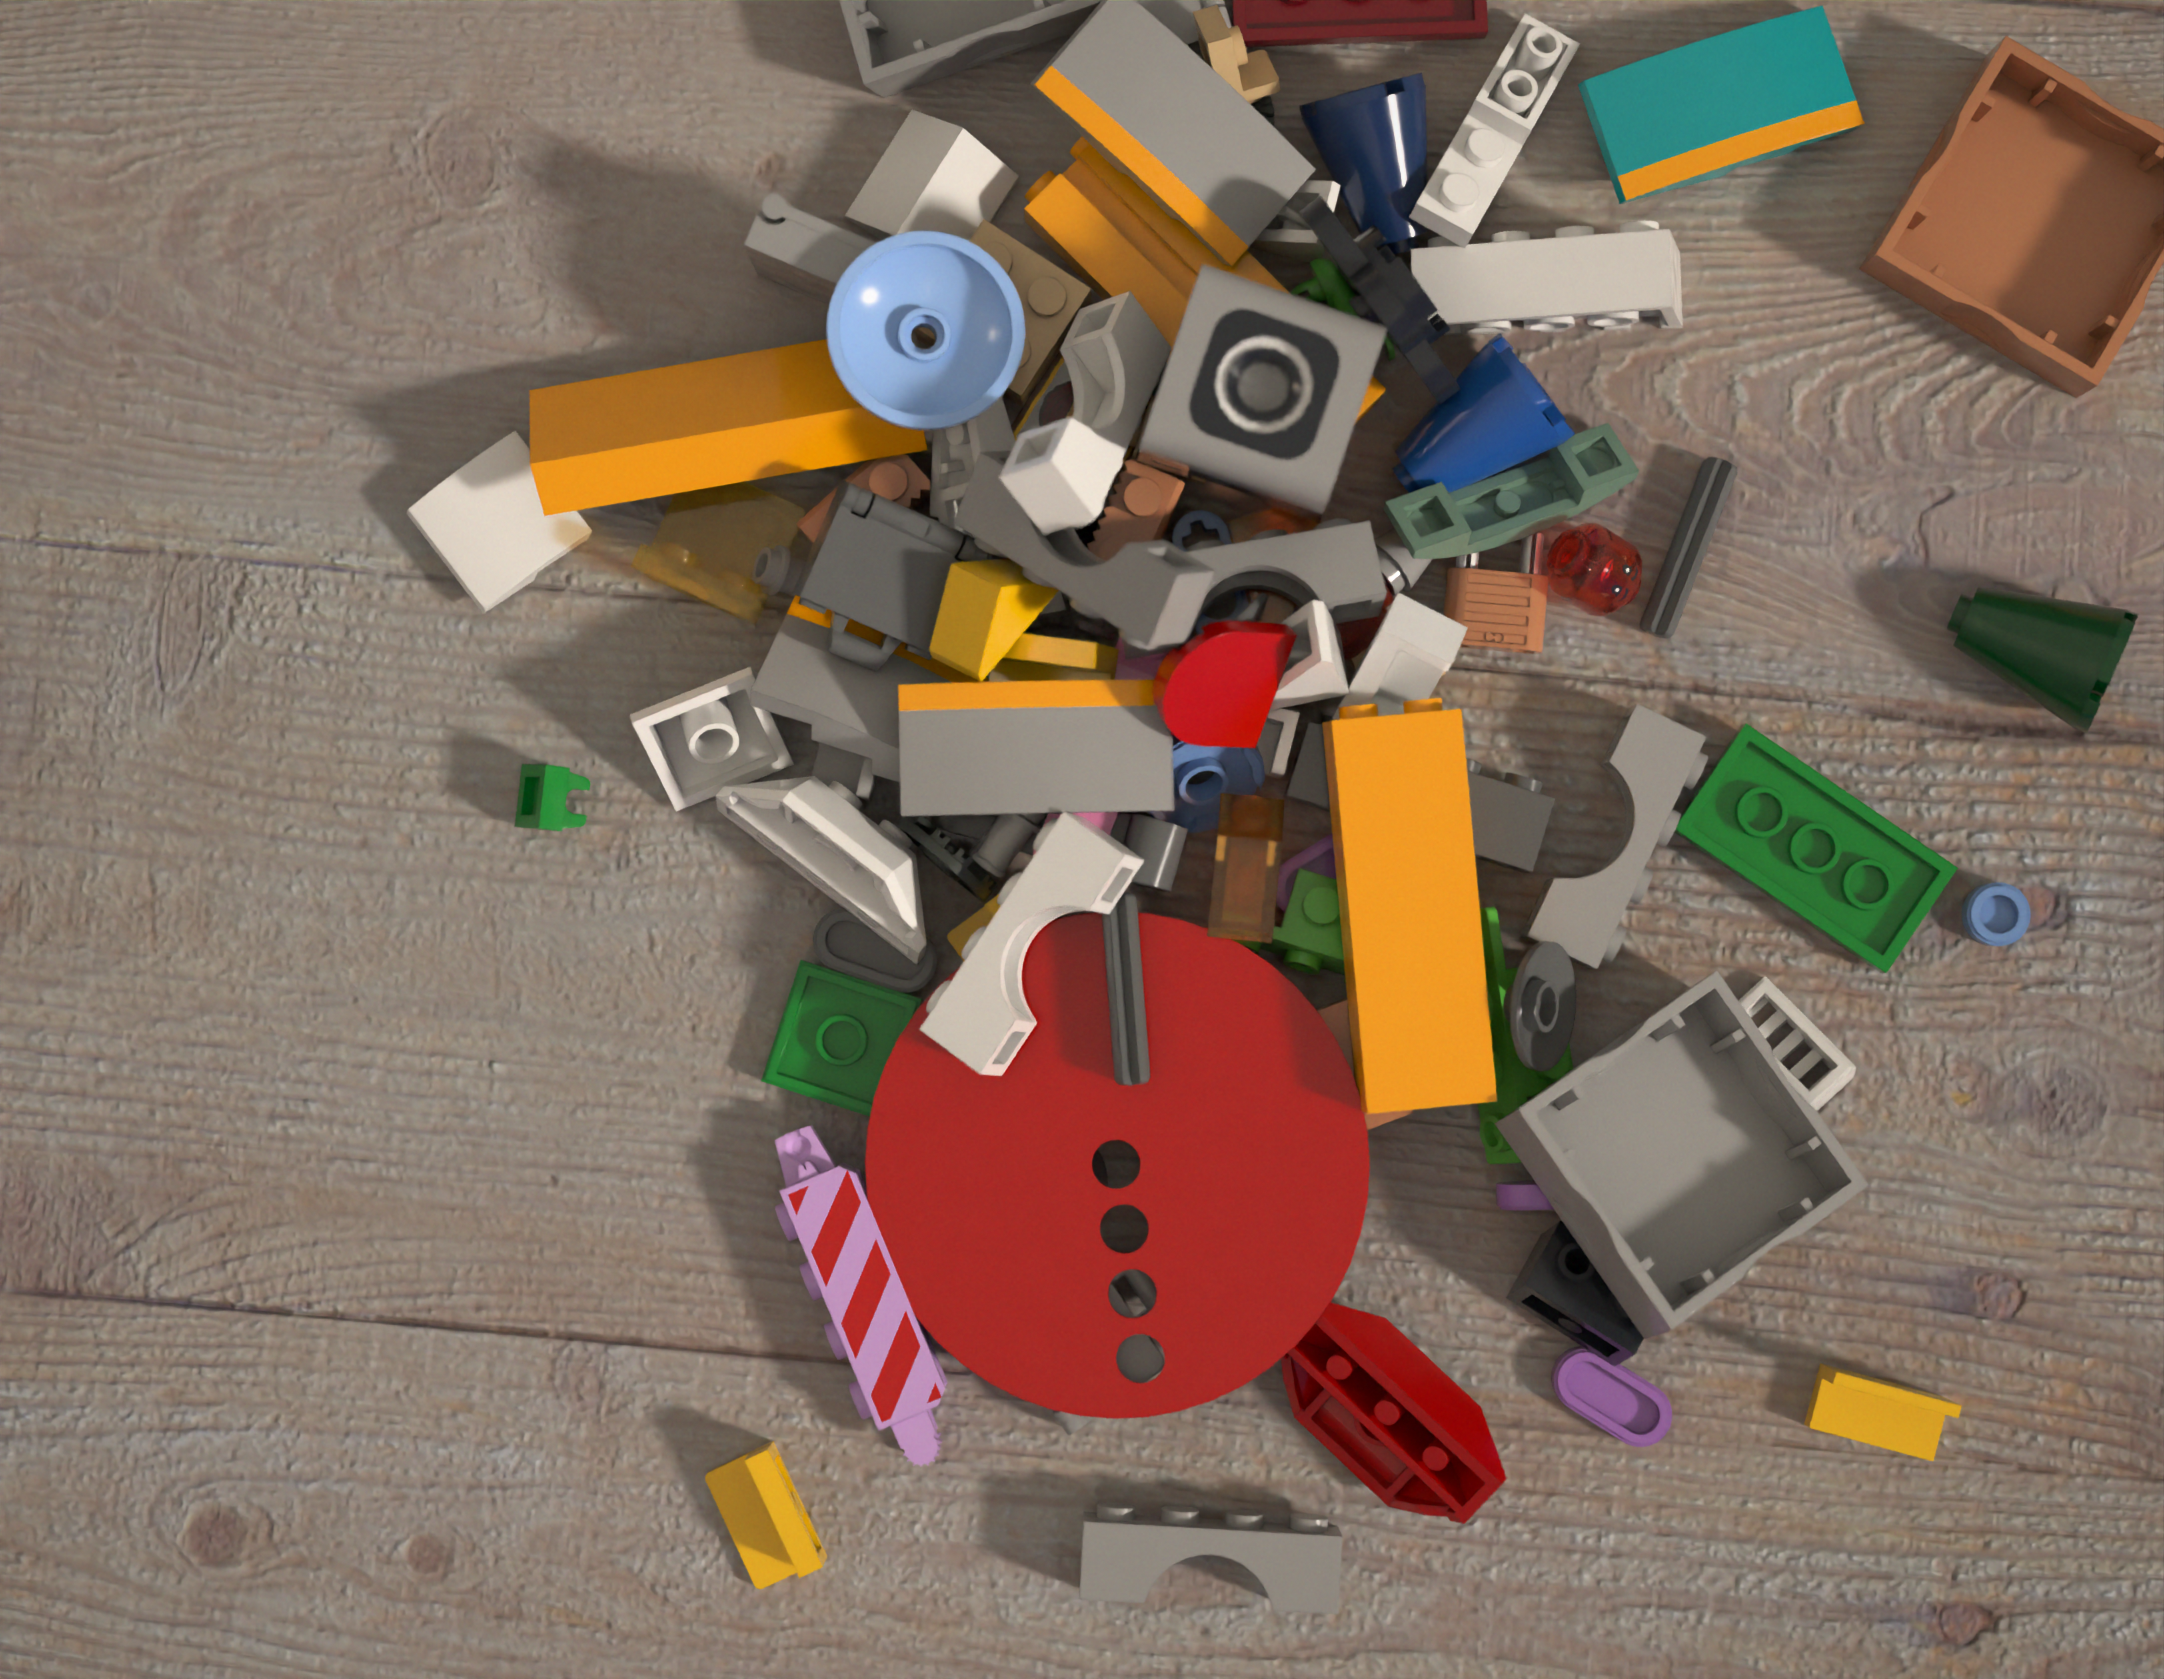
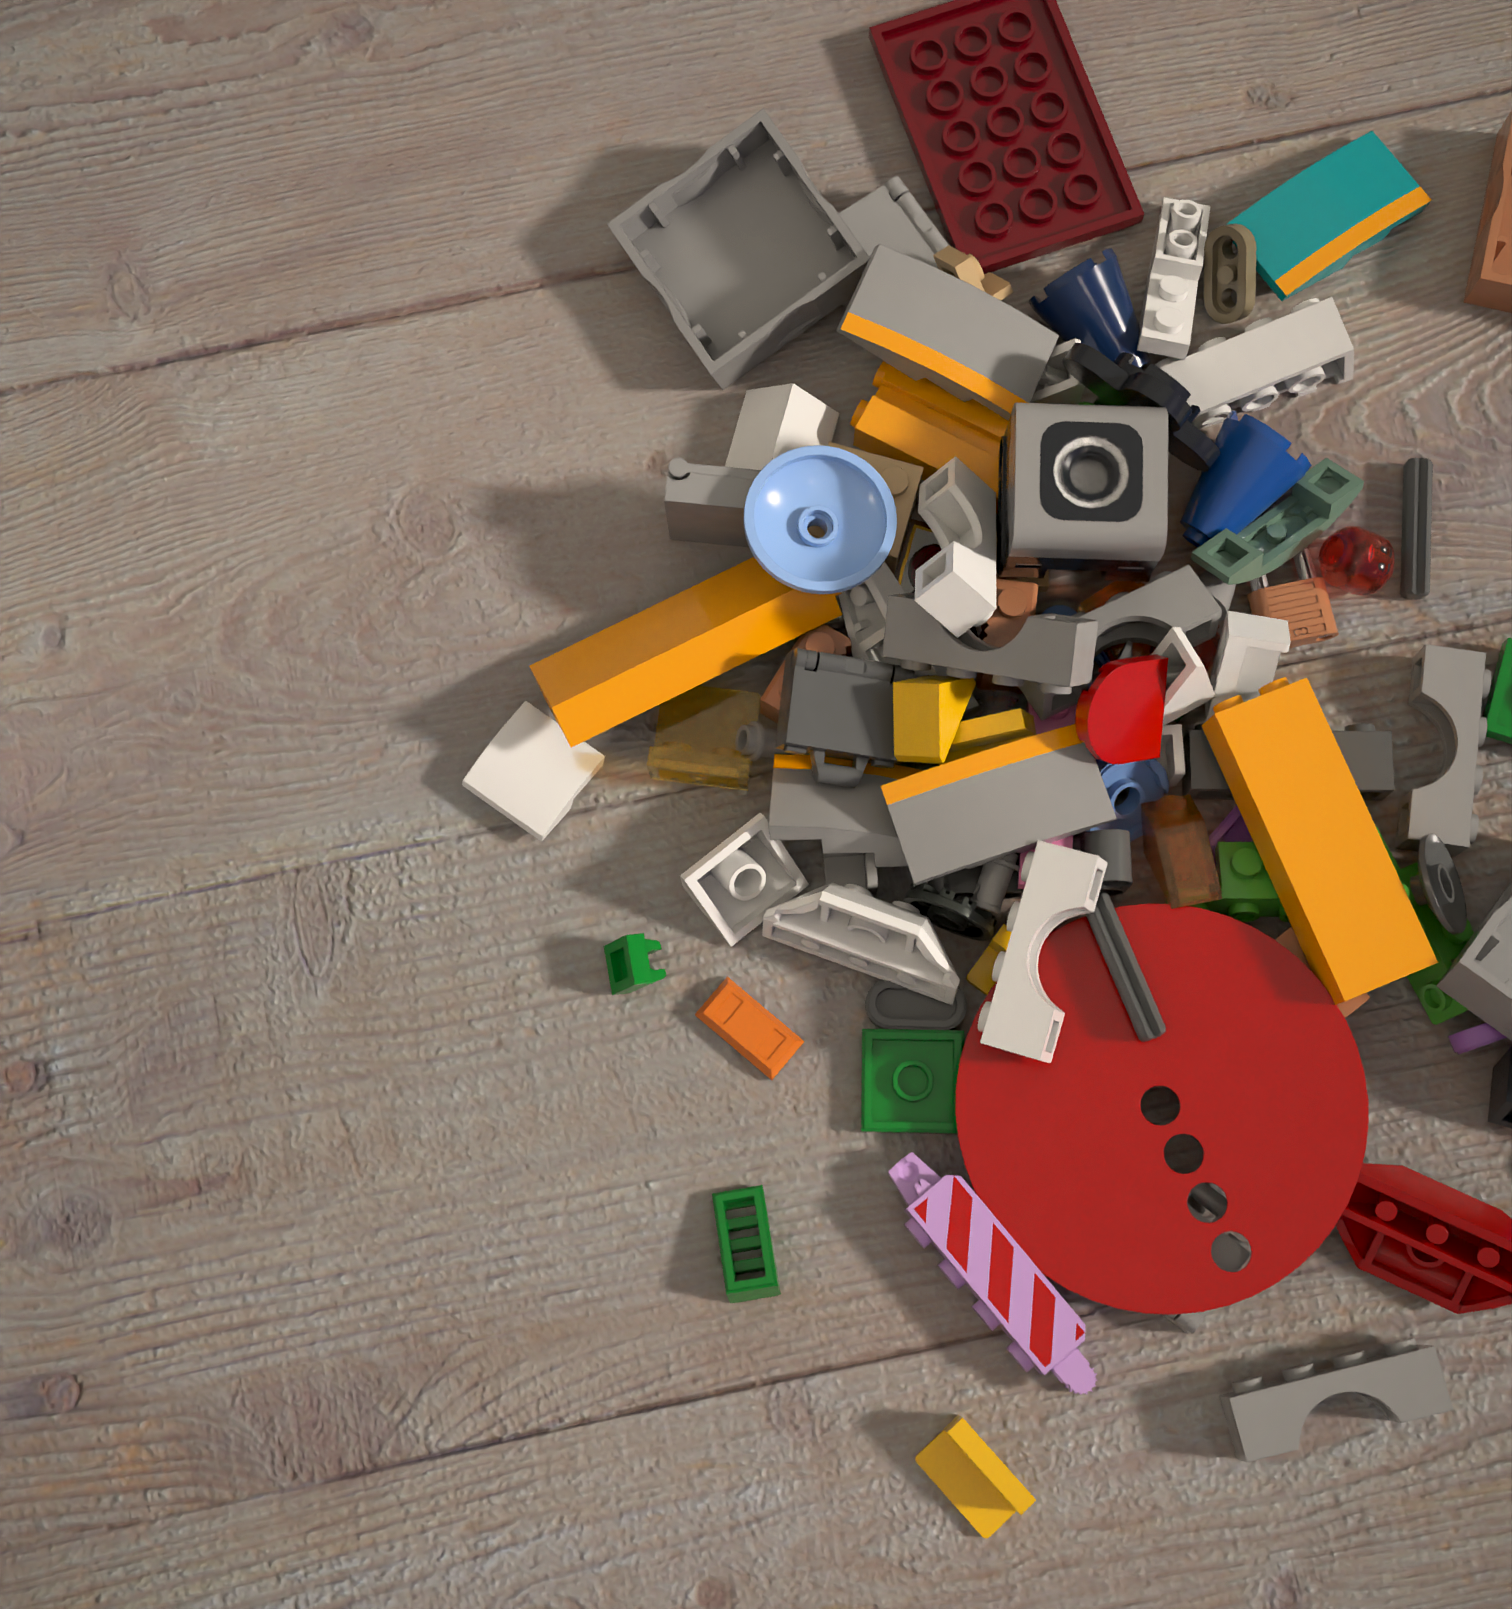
camera: 15 degrees left, 10 degrees down
(603, 1200) = (752, 1288): none -> green slope
(668, 916) = (749, 1028): none -> orange tile
(1567, 142) = (1229, 272): none -> dark tan plate

